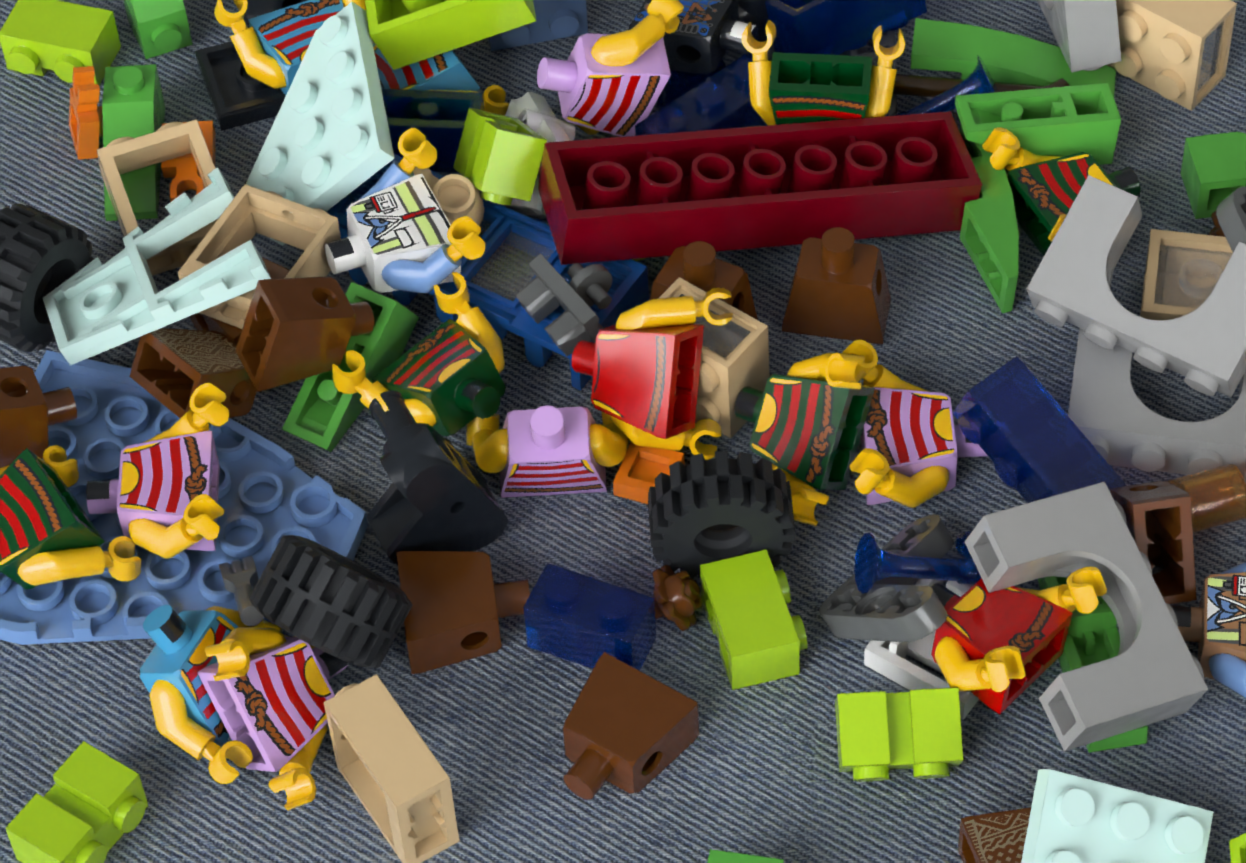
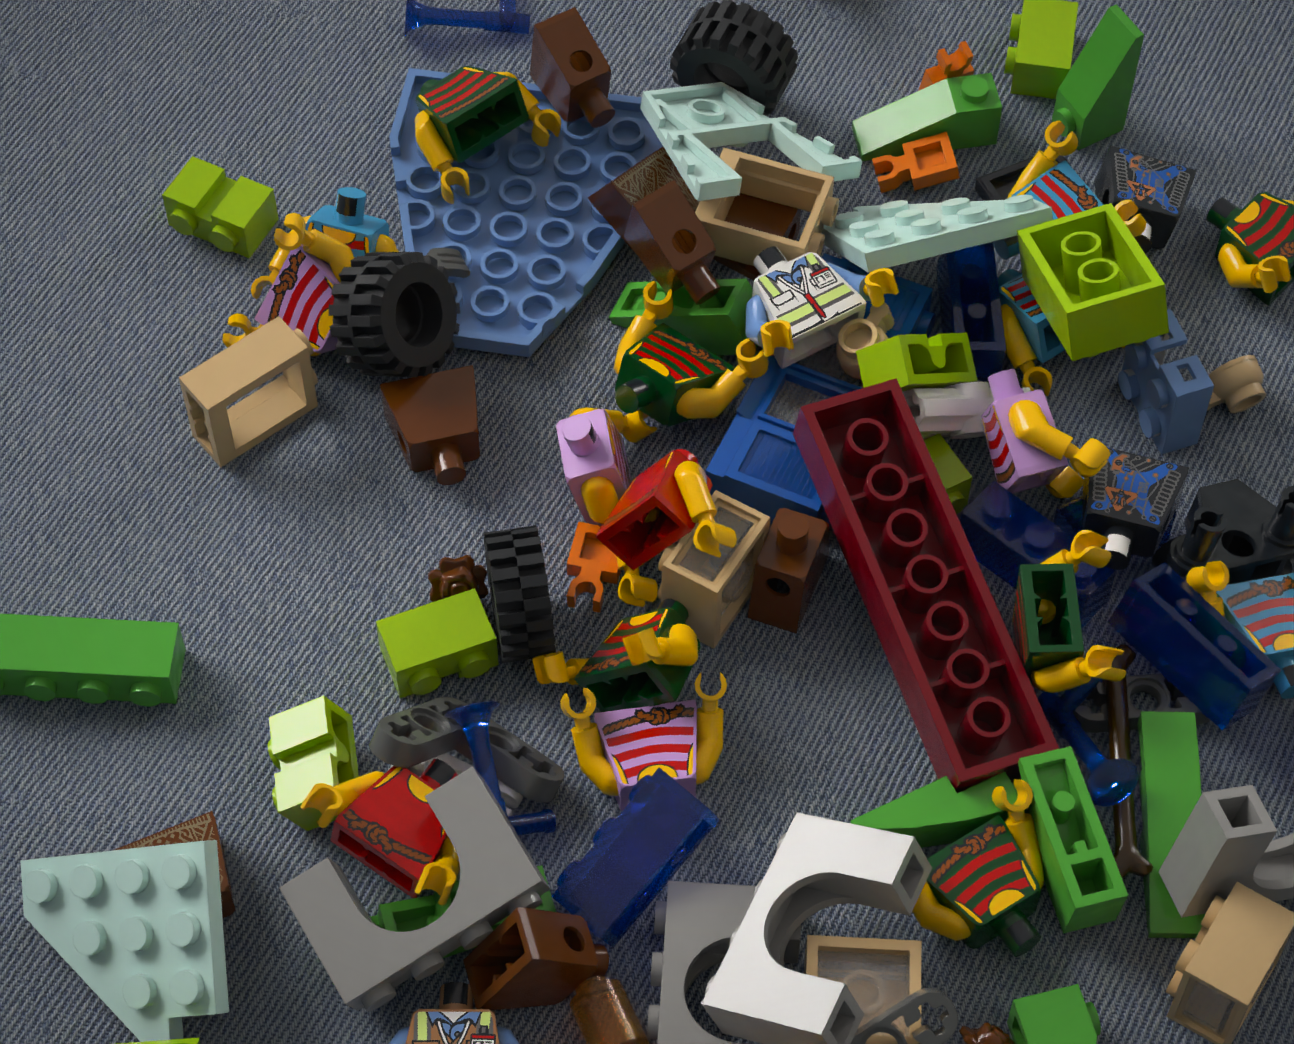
camera: 80 degrees right, 5 degrees up
(135, 153) = (886, 168): tan window -> none
(169, 483) = (519, 198): torso -> none
(435, 492) = (523, 376): black piece -> none
(551, 290) = (746, 443): dark grey hips -> none
(586, 617) = (422, 520): clear blue brick -> none
(625, 729) = (317, 559): reddish brown torso -> none
(838, 290) = (823, 669): reddish brown torso -> none

